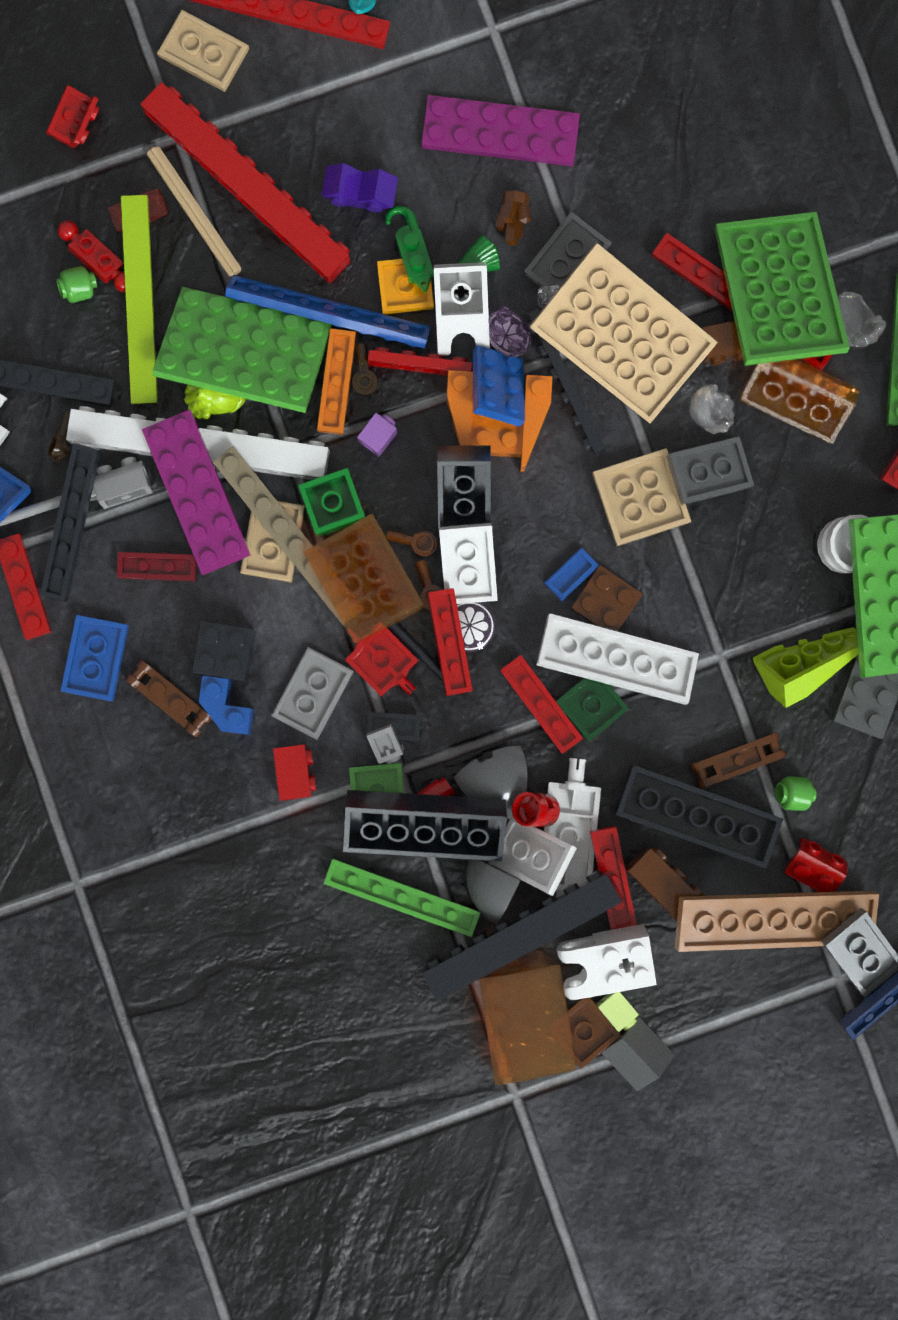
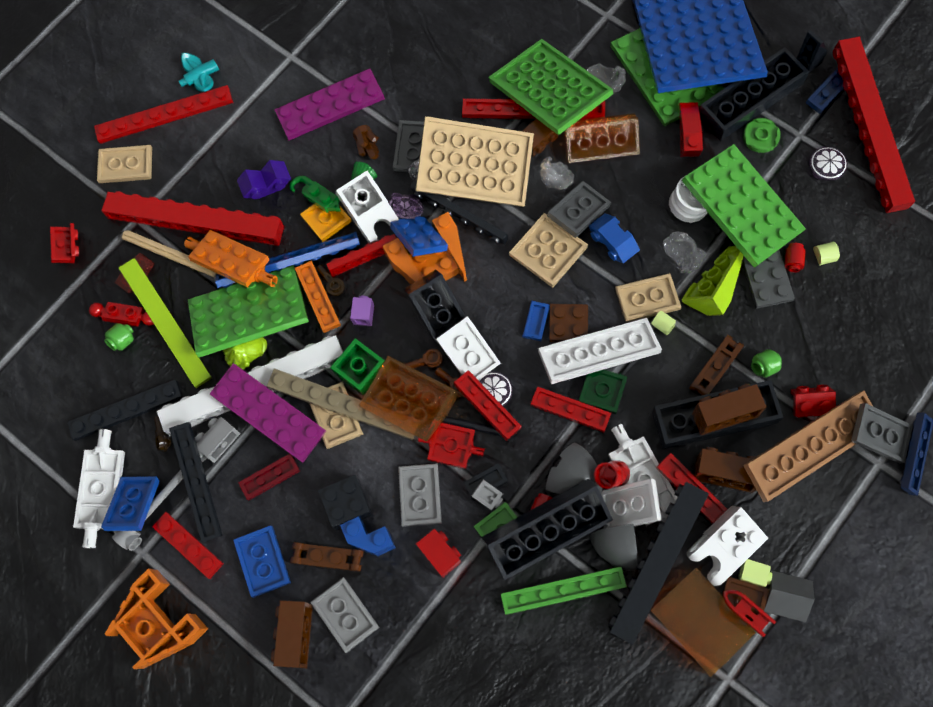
camera: 20 degrees left, 15 degrees down
(81, 763) = (292, 634): none -> reddish brown brick
(152, 773) = (344, 615): none -> light grey tile
(259, 270) = (230, 259): none -> orange plate
(579, 1038) = (744, 607): none -> red piece
(708, 824) = (728, 409): none -> reddish brown brick
(713, 672) = (663, 322): none -> yellowish green brick
(717, 629) = (647, 298): none -> tan tile
(724, 522) = (619, 243): none -> blue brick
(795, 604) = (684, 251): none -> clear hair

